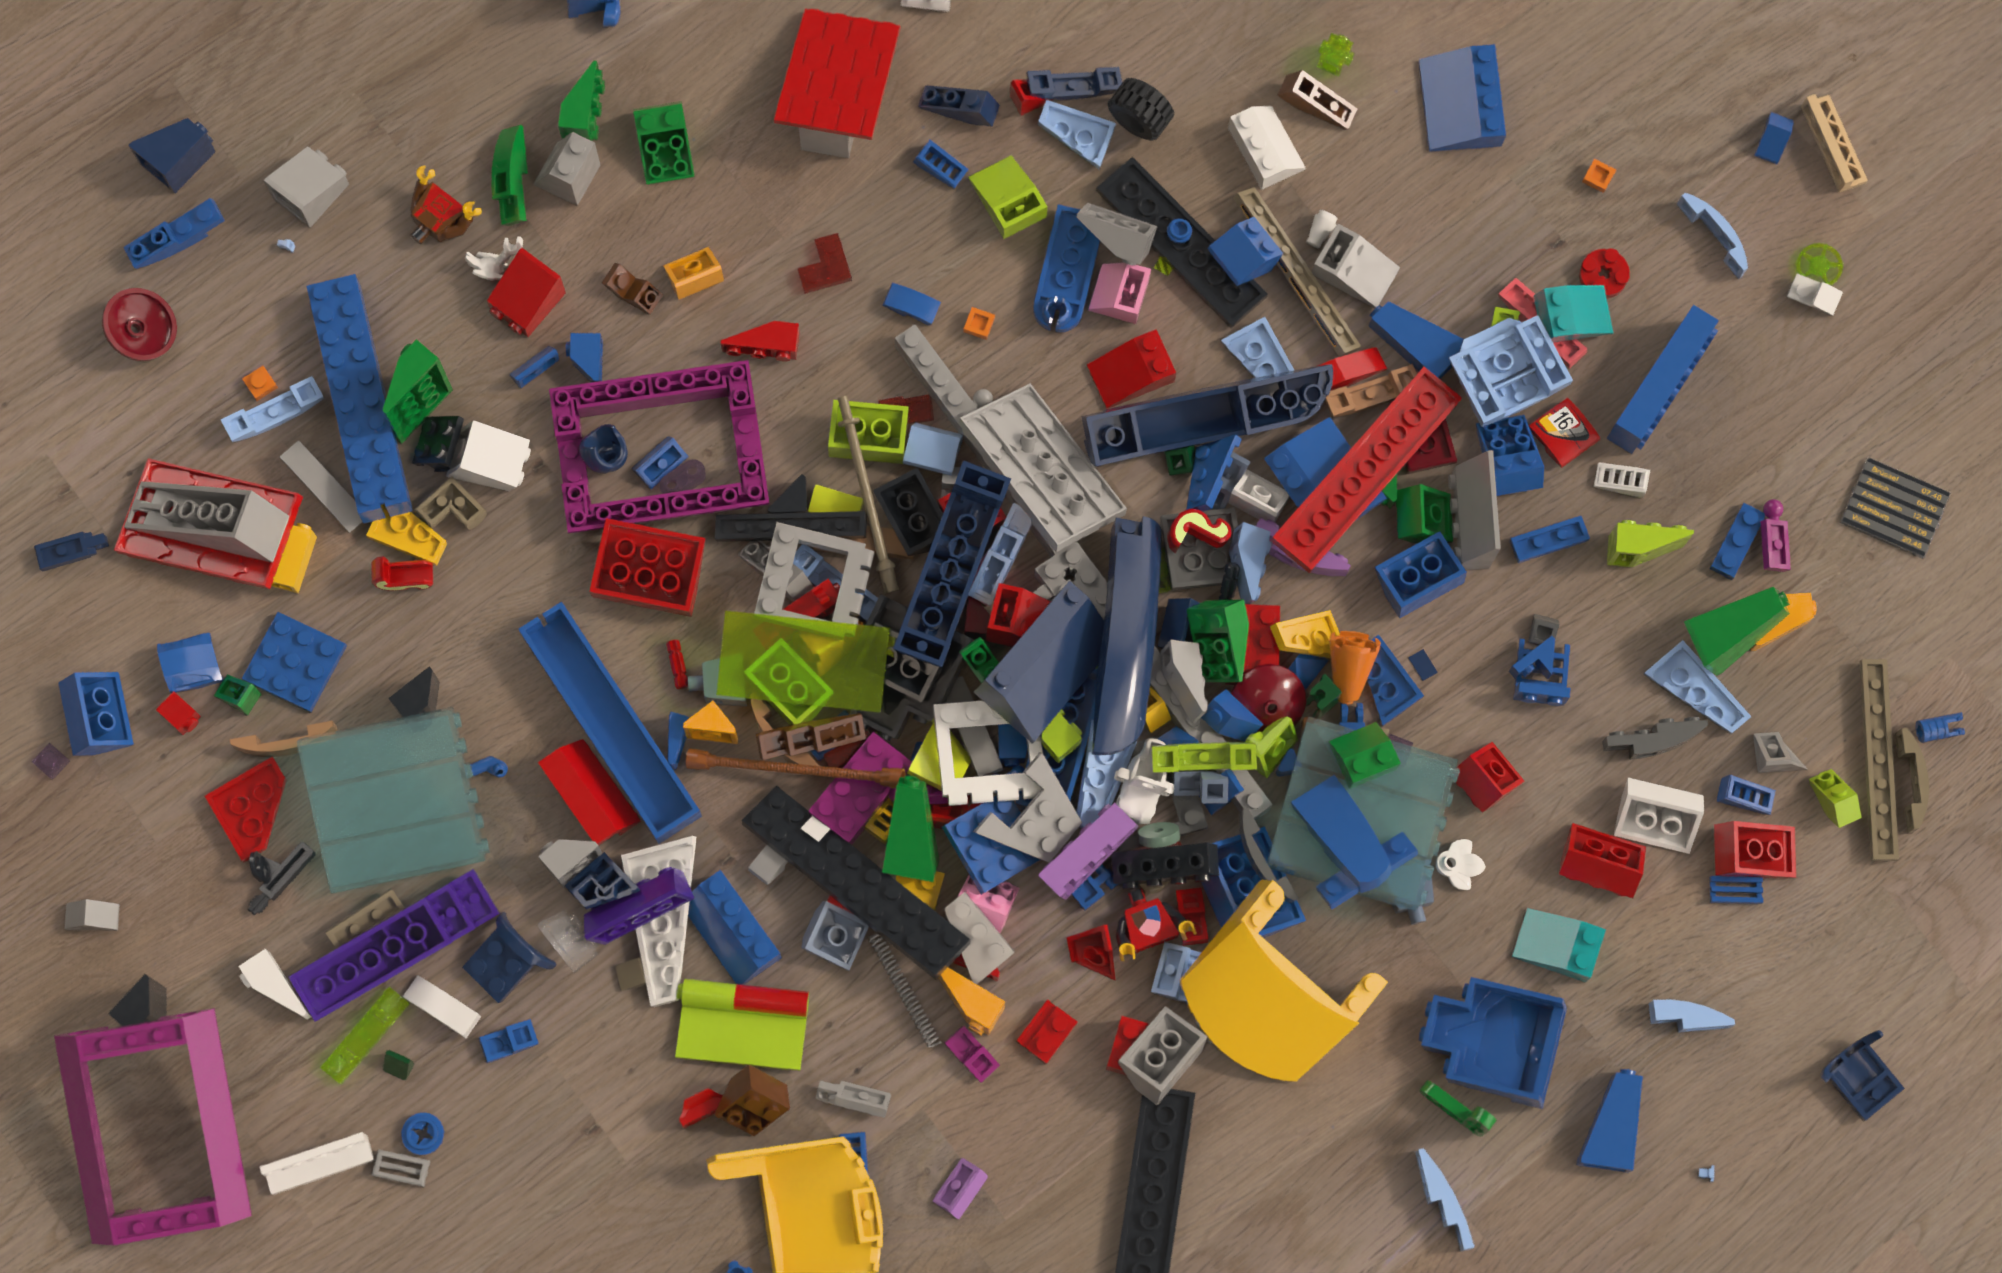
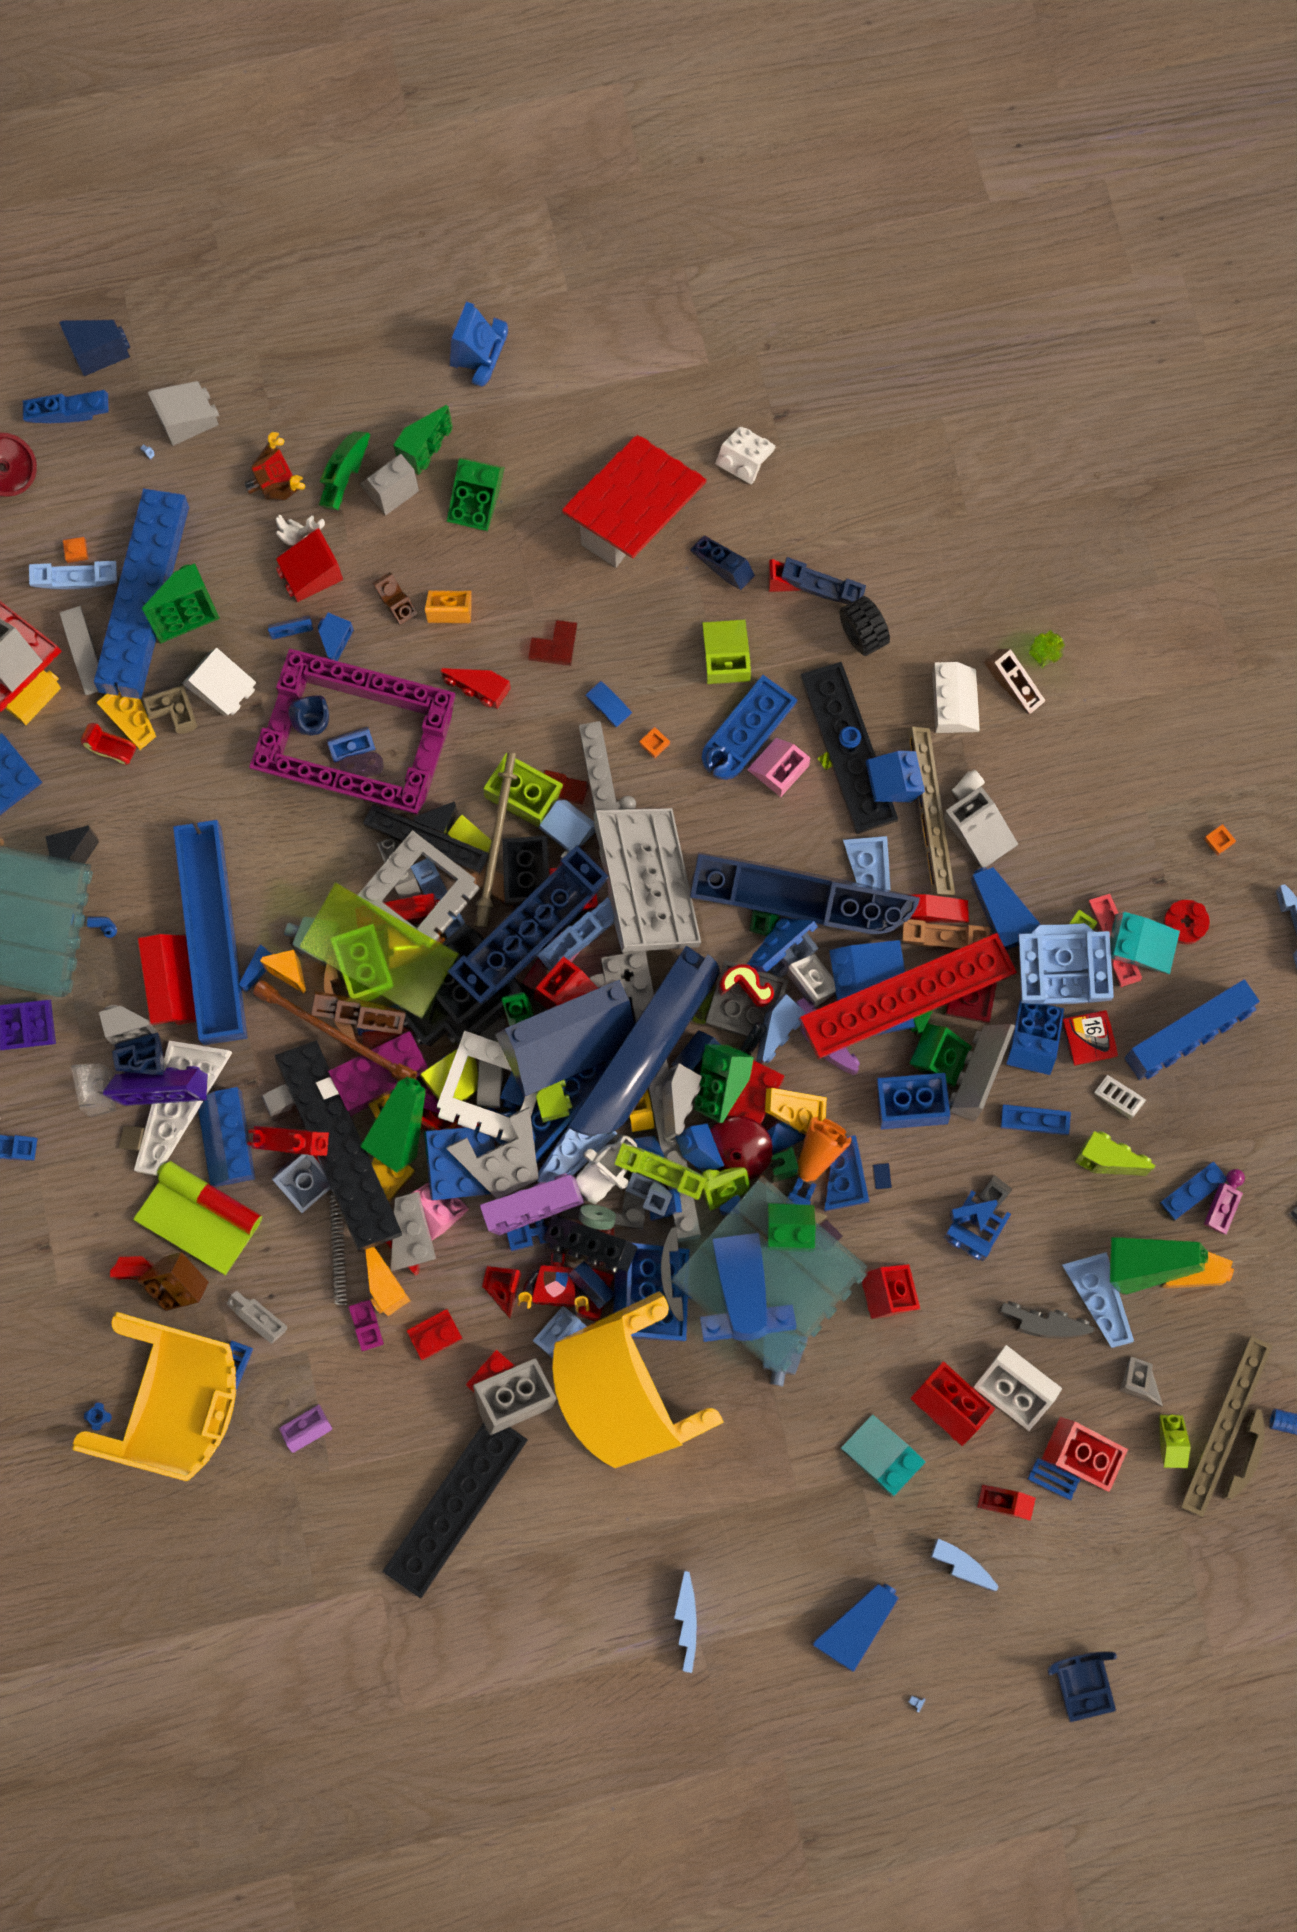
camera: 30 degrees right, 0 degrees up
(438, 442) = (186, 653): black piece -> none
(504, 960) = (39, 1083): dark blue piece -> none
(648, 567) = (298, 822): red slope -> none
(677, 663) = (286, 908): red axle -> none
(805, 899) = (289, 1140): none -> red brick
(945, 158) = (683, 585): blue slope -> none
(1078, 131) = (808, 622): light blue wing -> none
(1119, 233) = (797, 717): light grey slope -> none
(1132, 369) = (759, 833): red slope -> none
(1186, 906) = (591, 1284): none -> dark blue slope
(1462, 99) = (1135, 729): slope -> none
(1463, 864) = (837, 1354): white plate -> none
(1476, 1120) = (739, 1564): green beam -> none
(1497, 1039) = (793, 1511): blue panel -> none
(1701, 933) = (1006, 1502): none -> red slope
(1730, 790) = (1083, 1393): blue slope -> none

